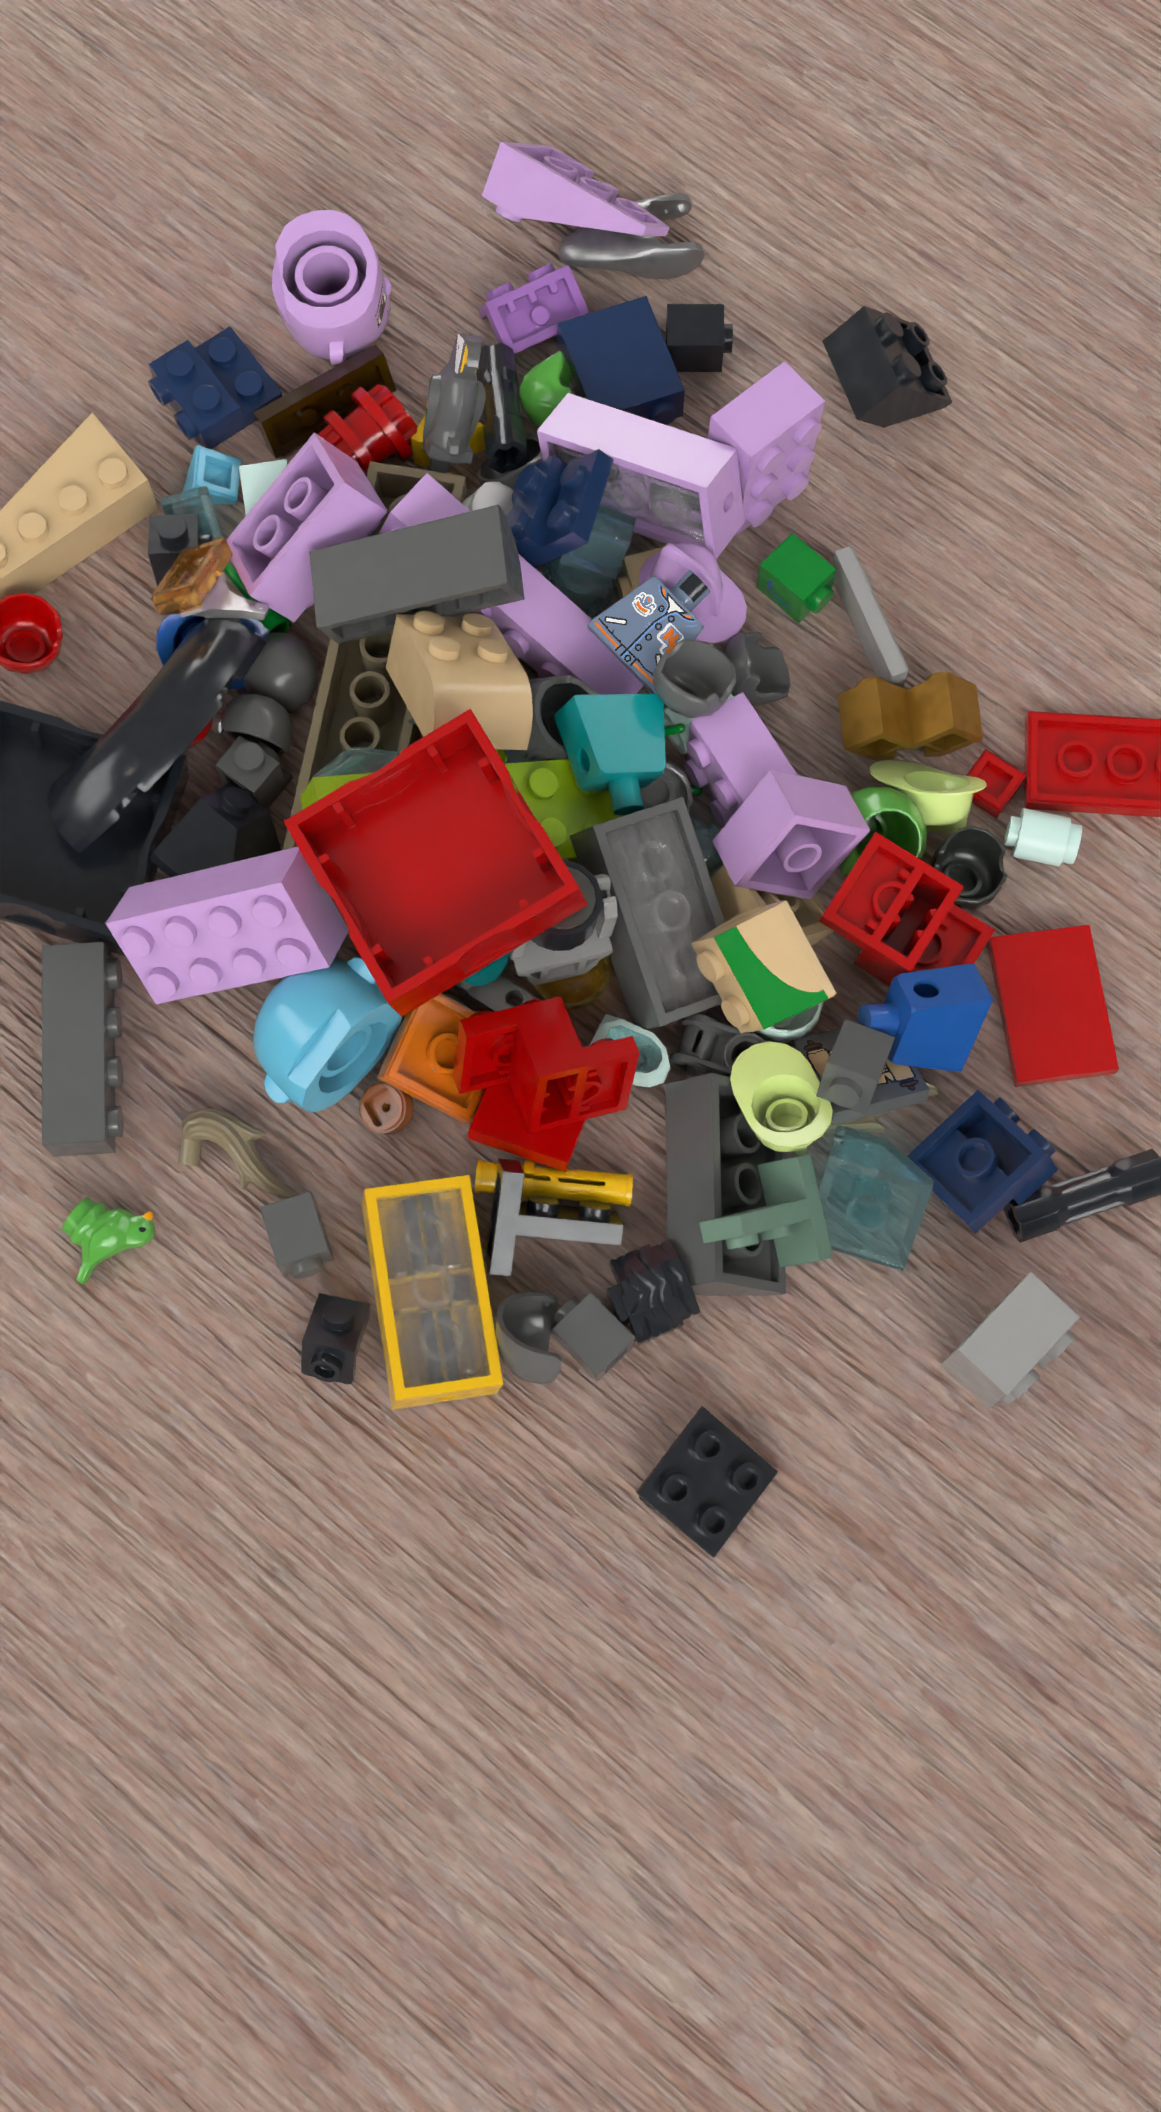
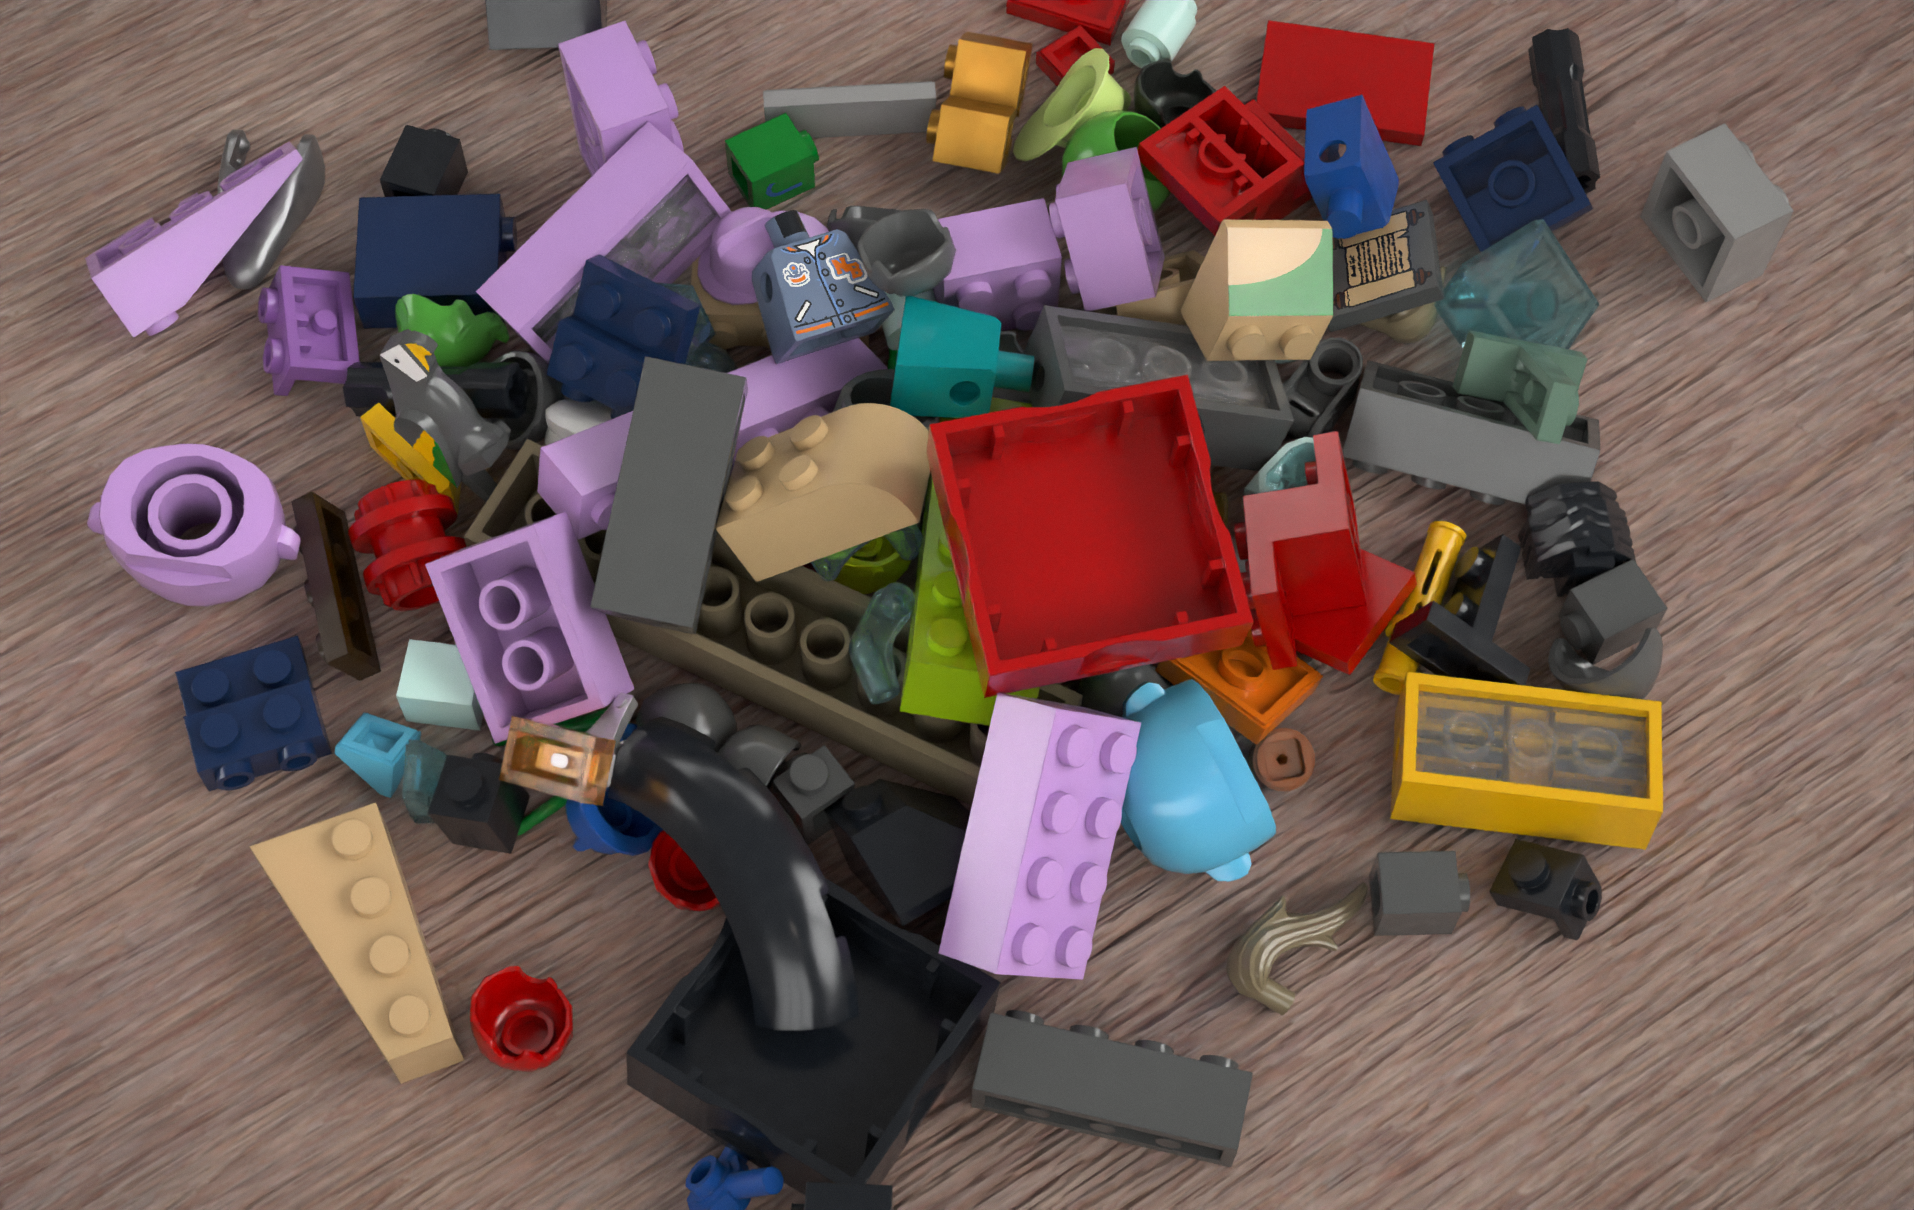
camera: 75 degrees left, 10 degrees down
(105, 1233) = (1358, 1116): bright green animal -> none
(706, 1482) = (1796, 548): black hinge -> none
(779, 1097) = (1402, 335): yellowish green piece -> none
(855, 1066) = (1395, 247): dark grey brick -> none

